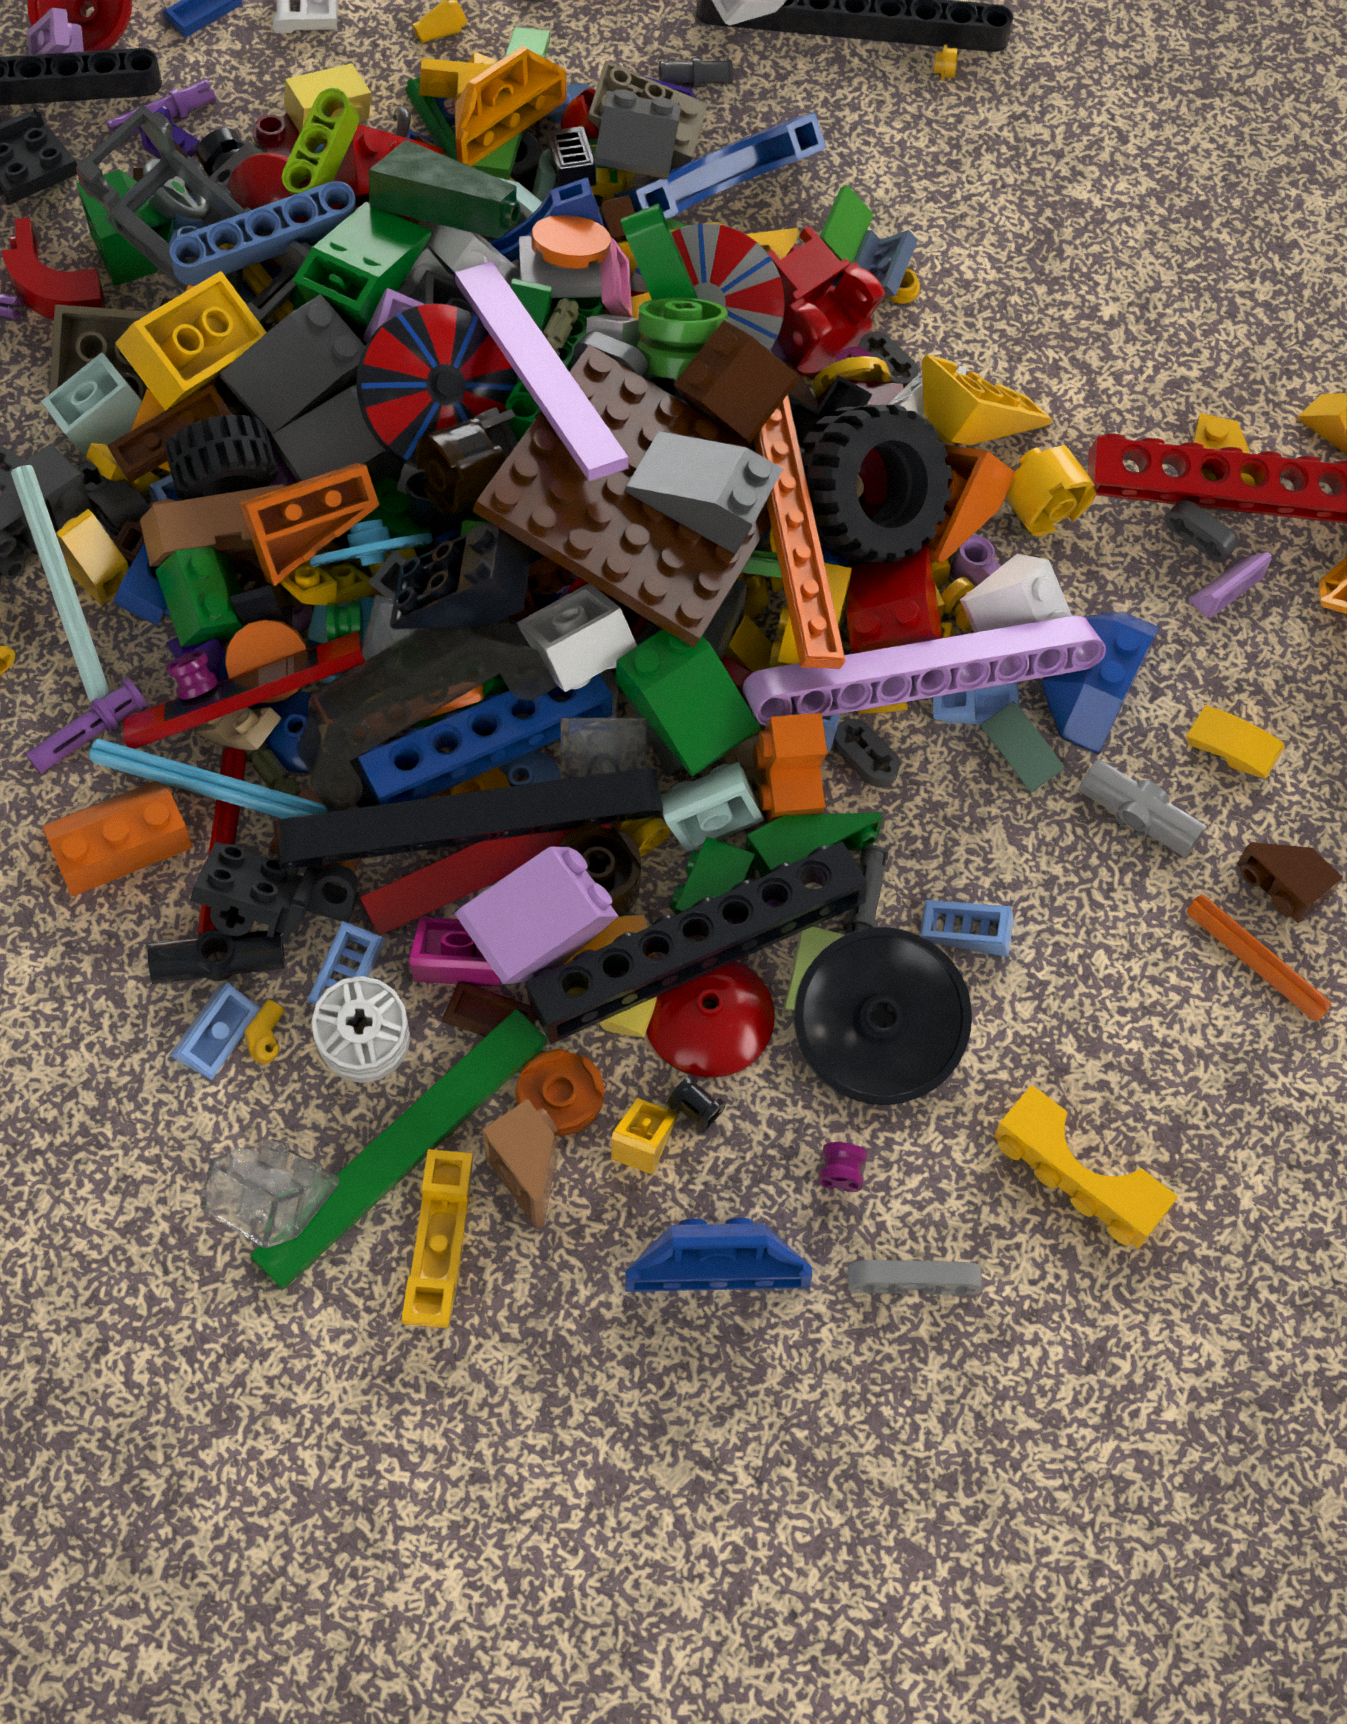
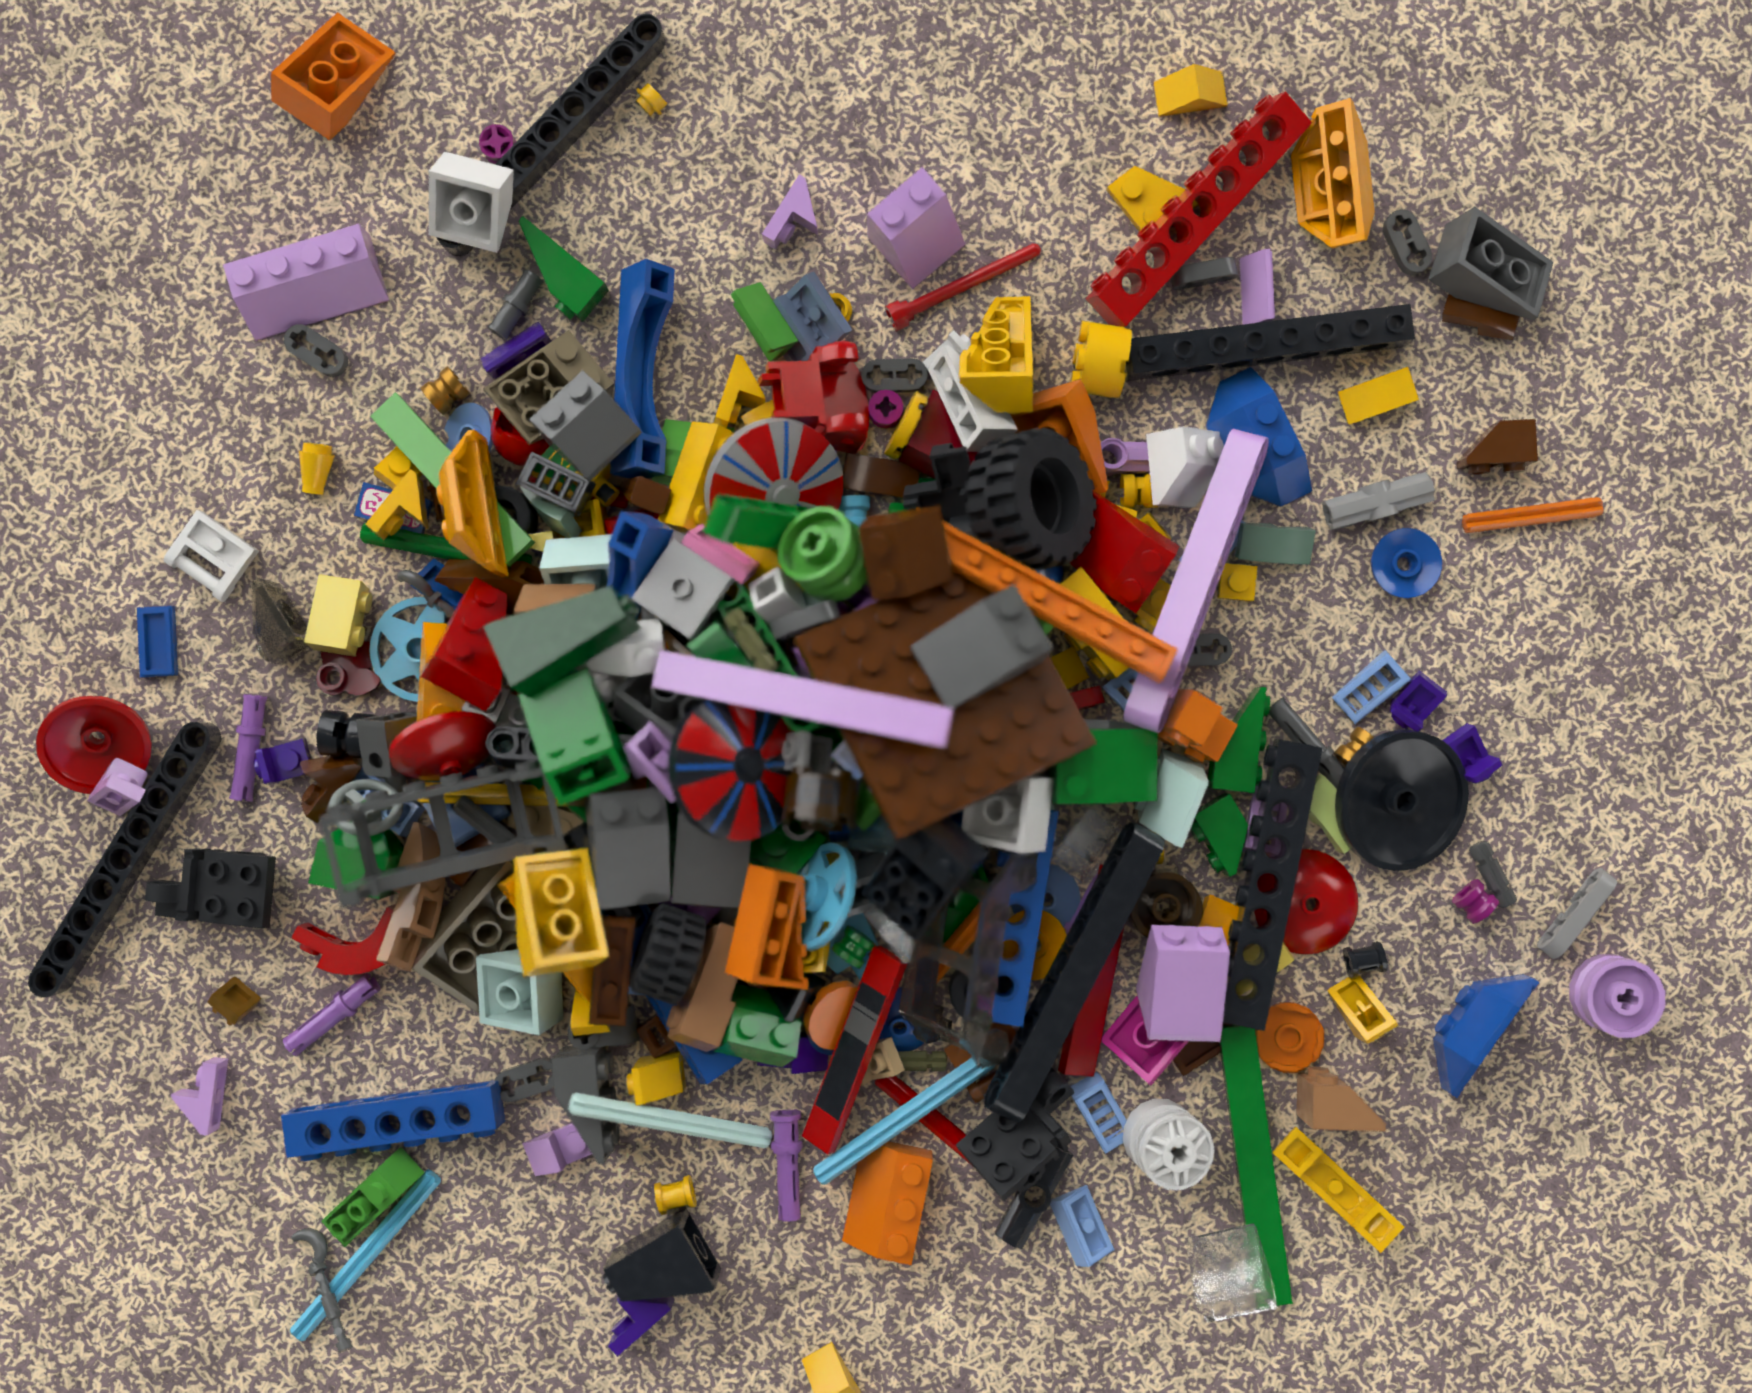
camera: 50 degrees left, 25 degrees up
(106, 280) = (417, 904): none -> medium nougat slope
(192, 675) = (814, 1077): magenta wheel -> none
(252, 248) = (487, 808): medium blue beam -> none
(259, 1033) = (1109, 1200): yellow arm -> none
(288, 55) = (276, 623): none -> clear smoke slope
(318, 130) = (446, 715): lime beam -> none
(570, 241) = (676, 571): orange tile -> none
(582, 65) = (445, 390): none -> pearl gold wheel
(748, 87) = (568, 280): none -> green slope
(869, 1346) = (1617, 995): none -> lavender wheel
(884, 1171) = (1493, 873): none -> dark grey axle
(947, 334) = (904, 312): none -> red piece
(952, 200) = (794, 207): none -> lavender slope
(958, 745) = (1237, 582): none -> yellow plate
(983, 1056) = (1473, 754): none -> dark purple bracket
(990, 971) = (1416, 701): none -> dark purple bracket
(1023, 282) = (915, 228): none -> lavender slope
(1110, 853) = (1423, 560): none -> blue dish
(1126, 1203) = (1629, 742): yellow arch -> none
(1194, 618) = (1270, 342): none -> black brick

